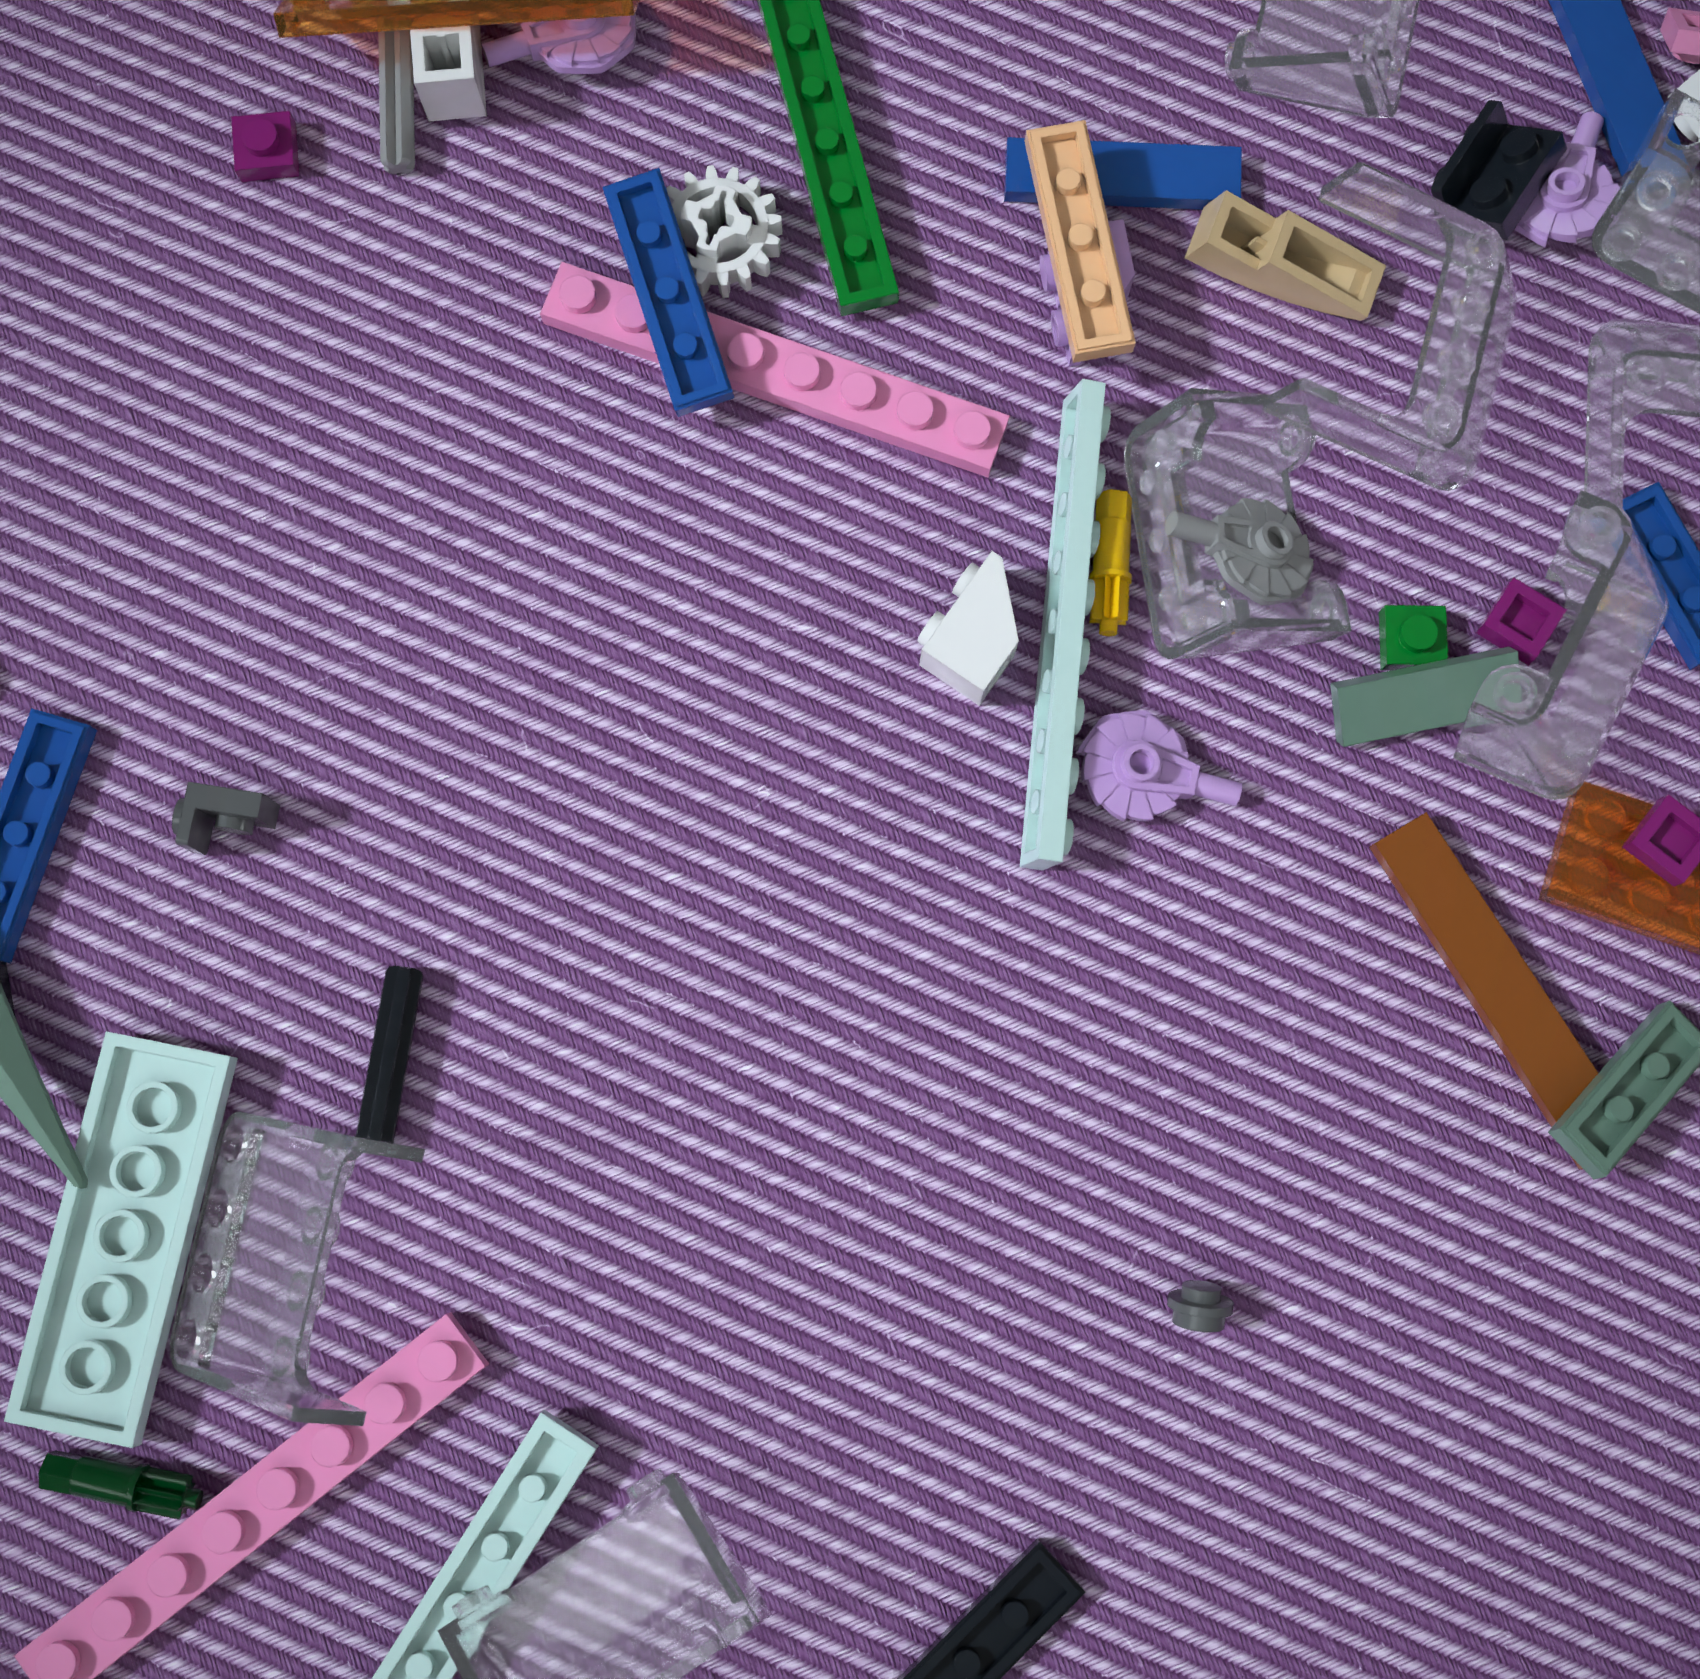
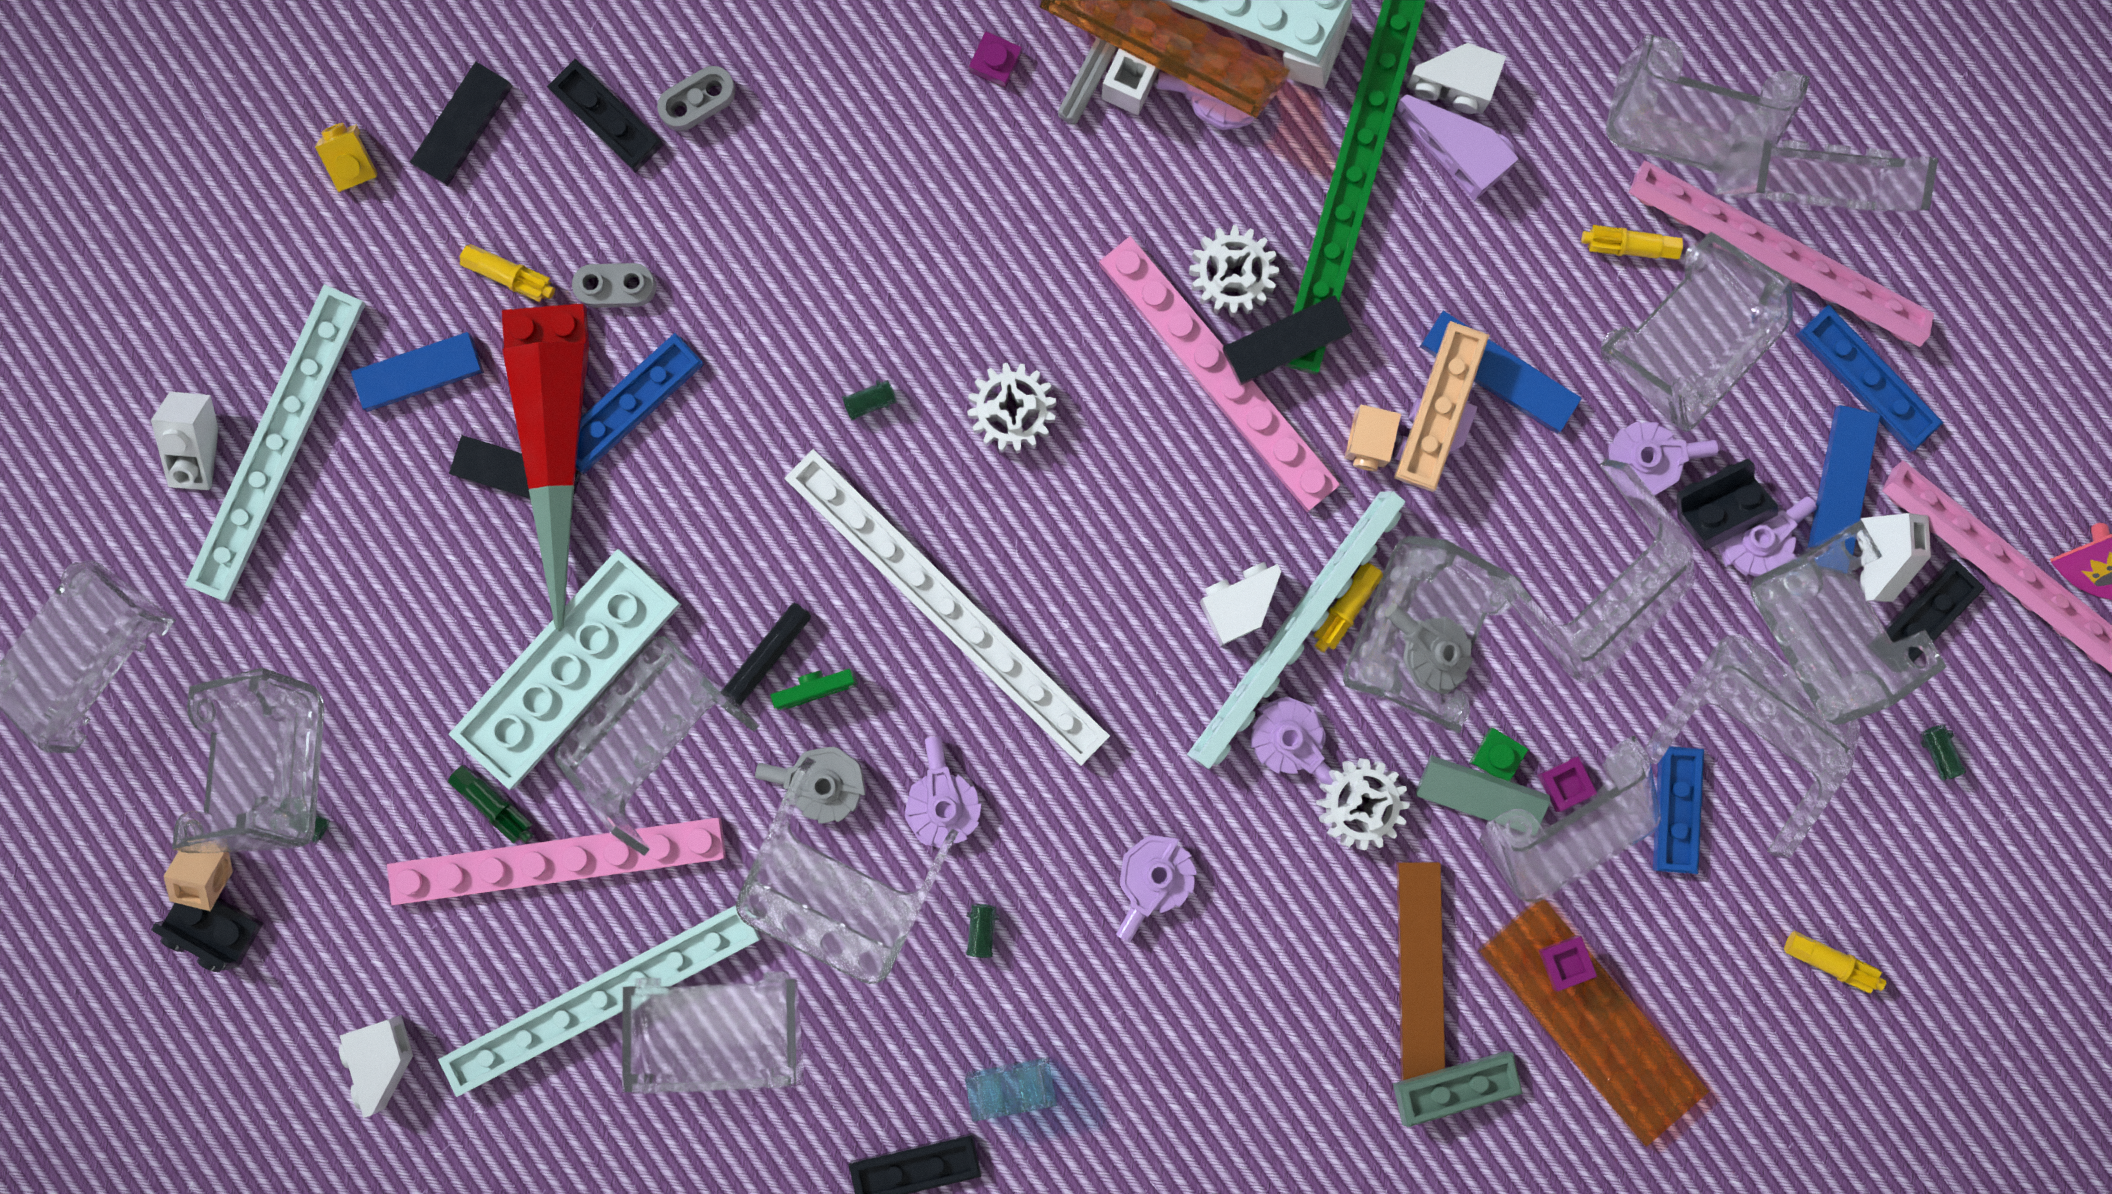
camera: 30 degrees right, 5 degrees up
(230, 808) = (756, 460): dark grey bracket -> none
(341, 649) = (870, 399): none -> clear green pin
(477, 1063) = (813, 687): none -> green plate
(516, 571) = (1030, 403): none -> white gear
(561, 1182) = (831, 788): none -> light grey piece
(595, 856) = (947, 607): none -> white plate
(658, 1344) = (827, 904): none -> clear windscreen
(668, 292) = (1180, 295): blue tile -> none
(738, 1118) = (941, 801): none -> lavender piece
(835, 273) = (1287, 340): none -> black tile
(889, 1254) = (981, 930): none -> clear green pin
(1014, 334) = (1372, 437): none -> light nougat brick
(1055, 1446) = (1010, 1089): none -> clear light blue brick
(1075, 1048) = (1154, 877): none -> lavender piece
(1200, 1306) = (1137, 1062): dark grey plate -> none
(1284, 258) = (1564, 483): tan slope -> none
(1310, 797) = (1370, 820): none -> white gear
(1386, 151) = (1656, 454): none -> lavender piece

